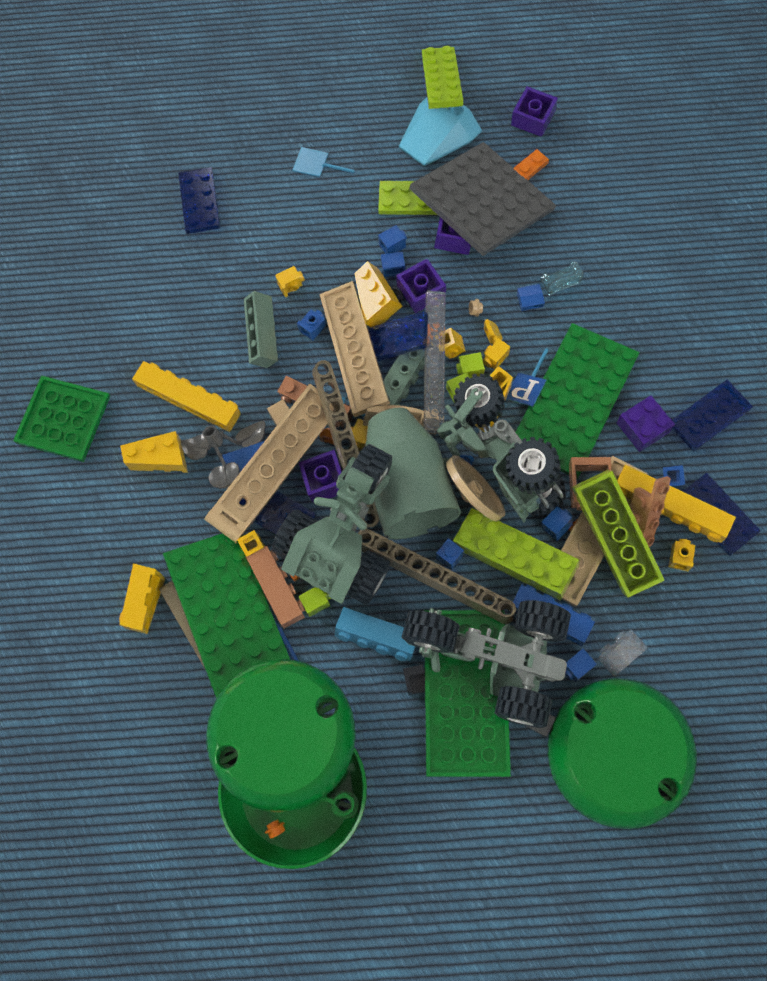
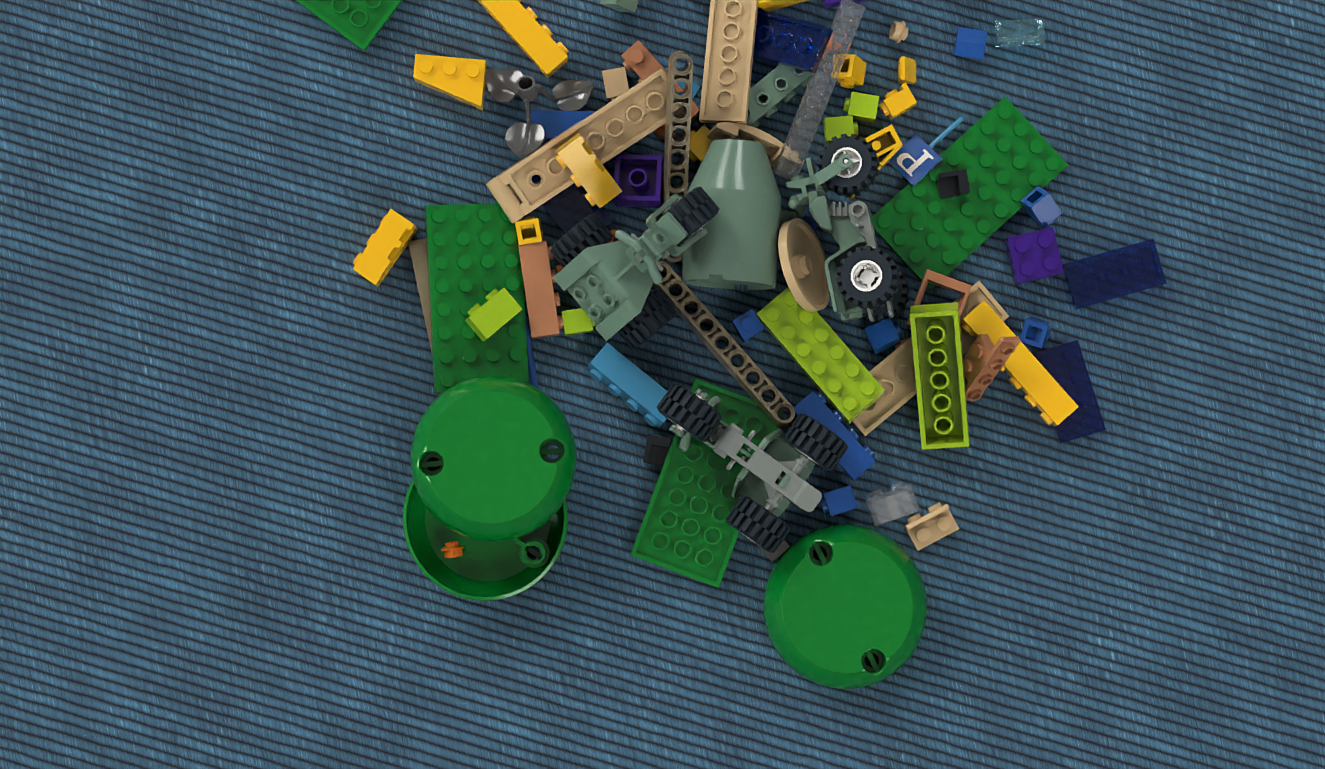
camera: 10 degrees right, 15 degrees up
(242, 617) = (493, 314): none -> lime brick
(279, 476) = (587, 171): none -> yellow wedge
(562, 392) = (953, 184): none -> black panel
(634, 386) = (1041, 207): none -> blue brick
(660, 659) = (931, 526): none -> tan bracket
(681, 561) = (998, 428): yellow brick -> none

